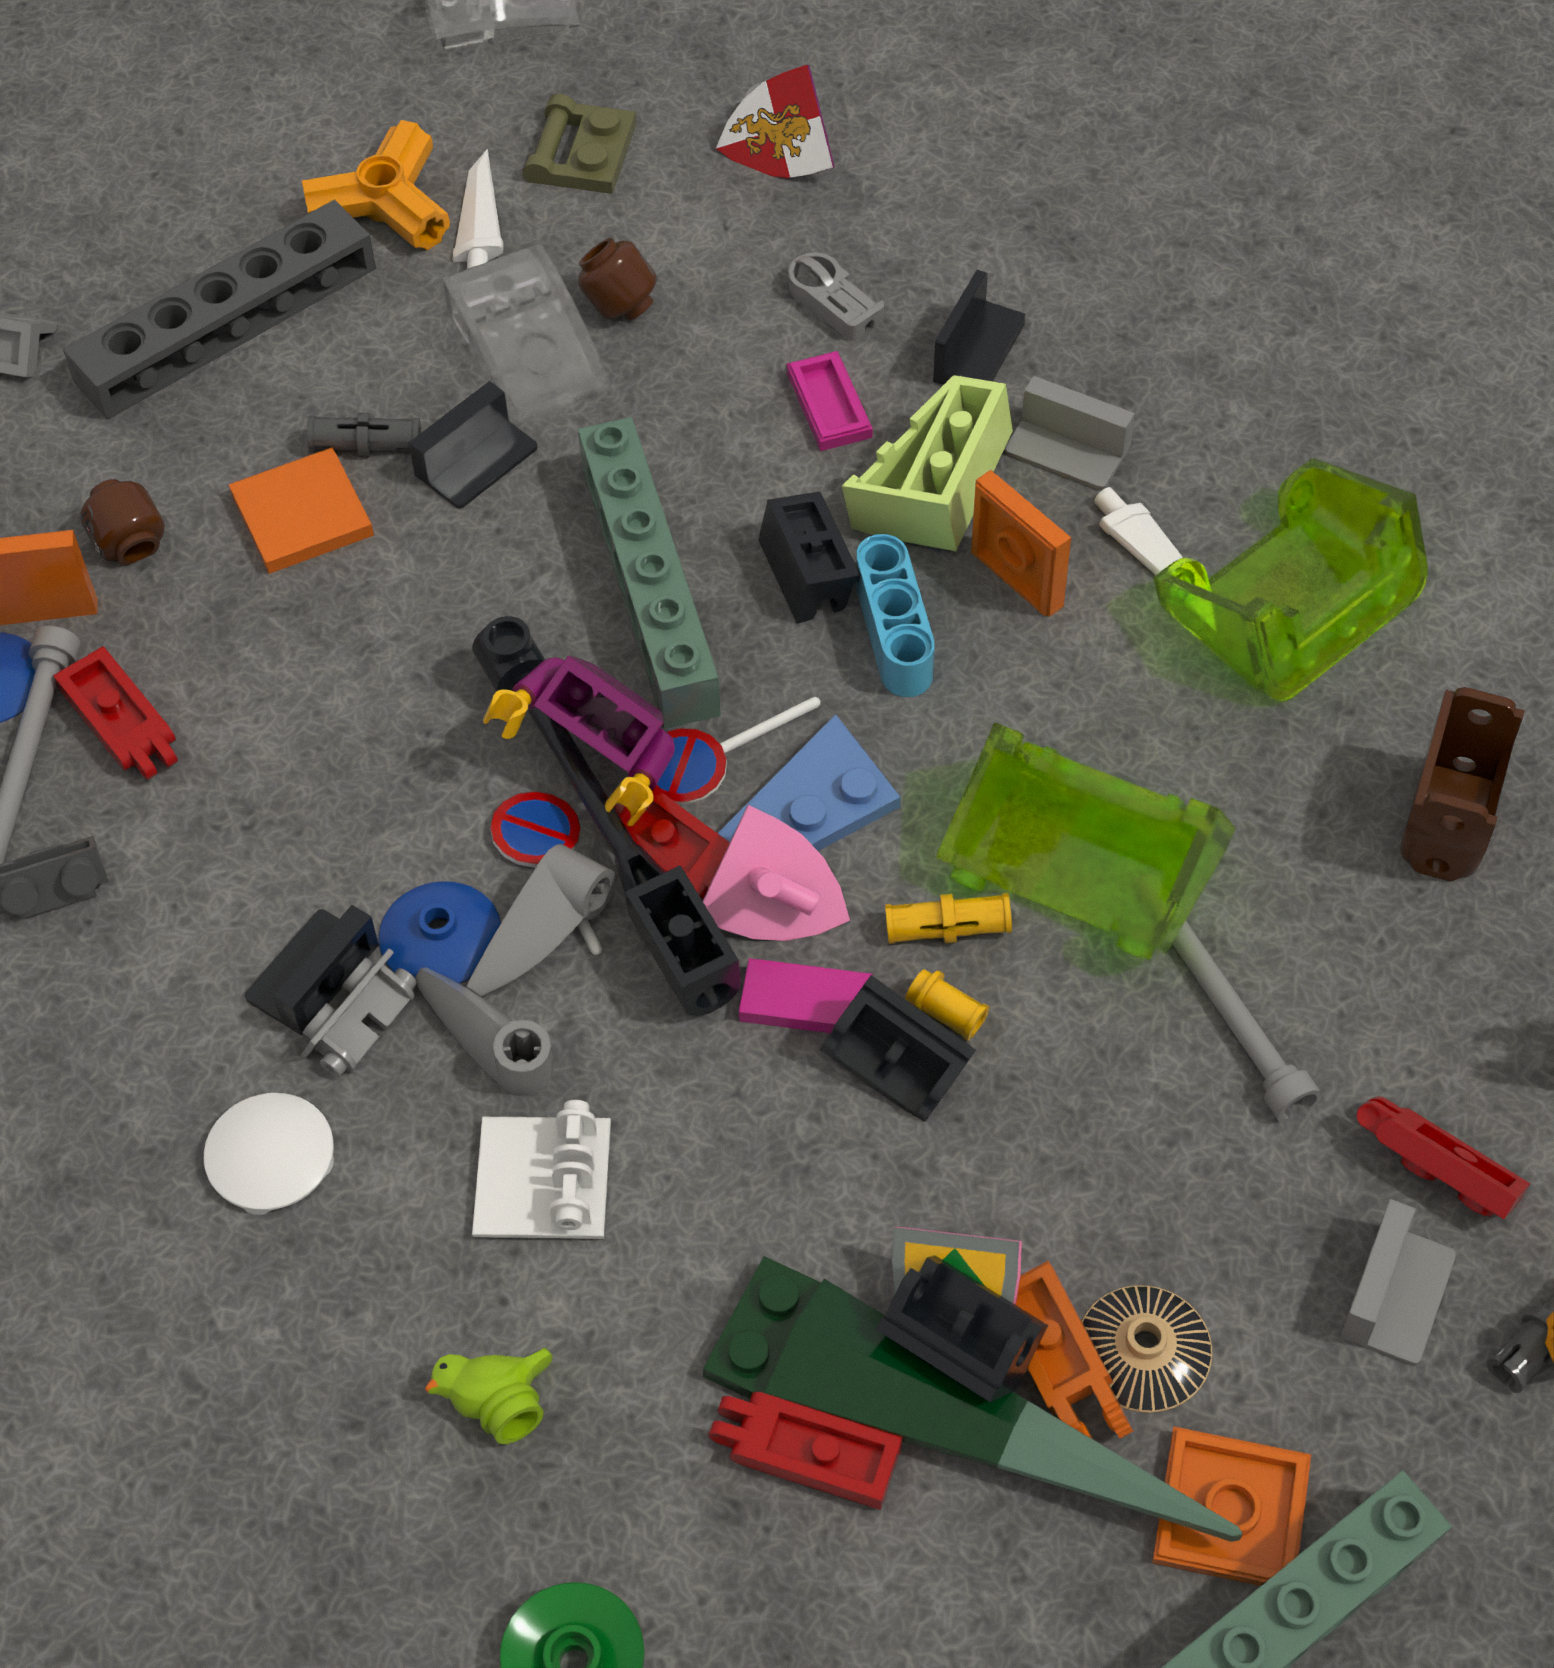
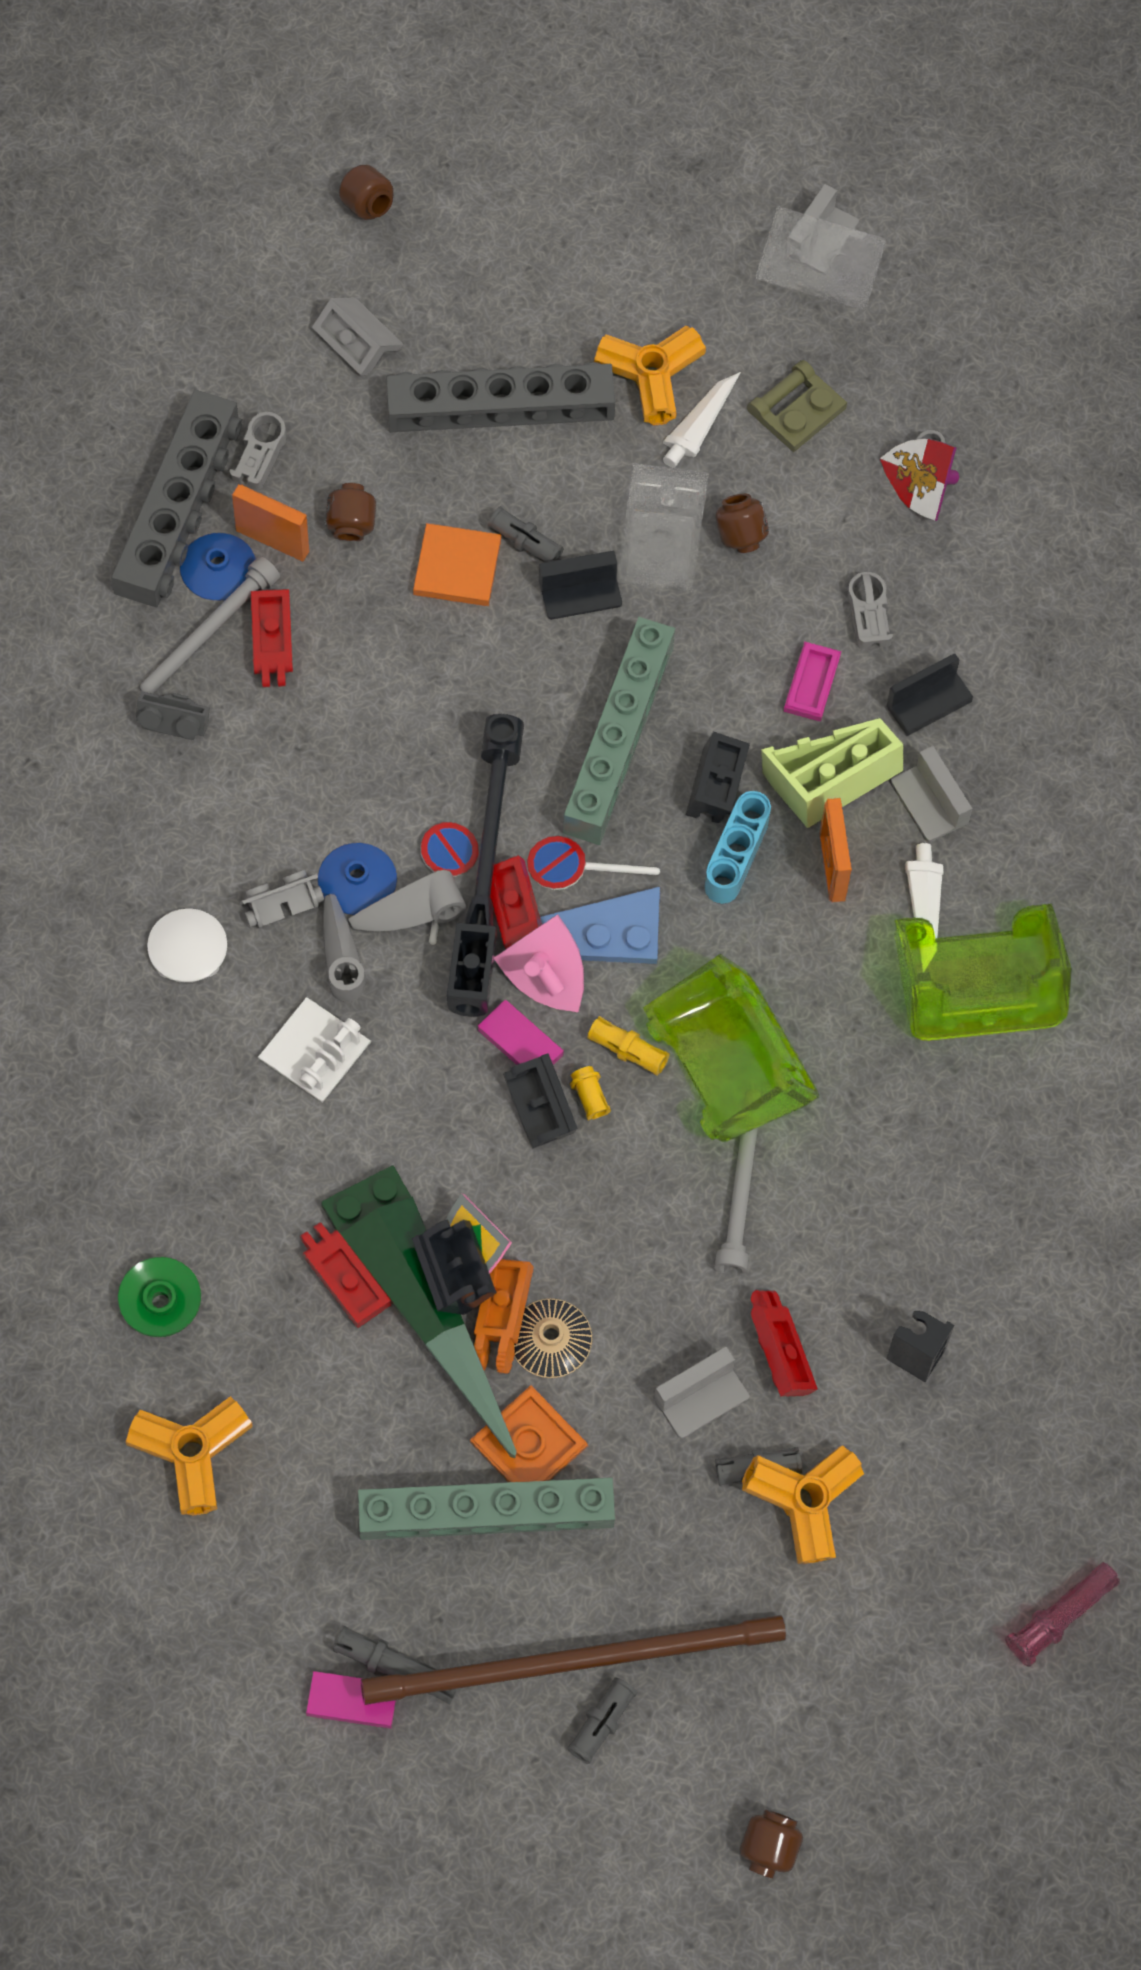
camera: 30 degrees right, 10 degrees up
(313, 967) = (276, 856): black panel -> none
(493, 1391) = (212, 1145): lime animal -> none
(601, 715) = (519, 808): magenta torso -> none
(1459, 799) = (958, 1152): reddish brown piece -> none

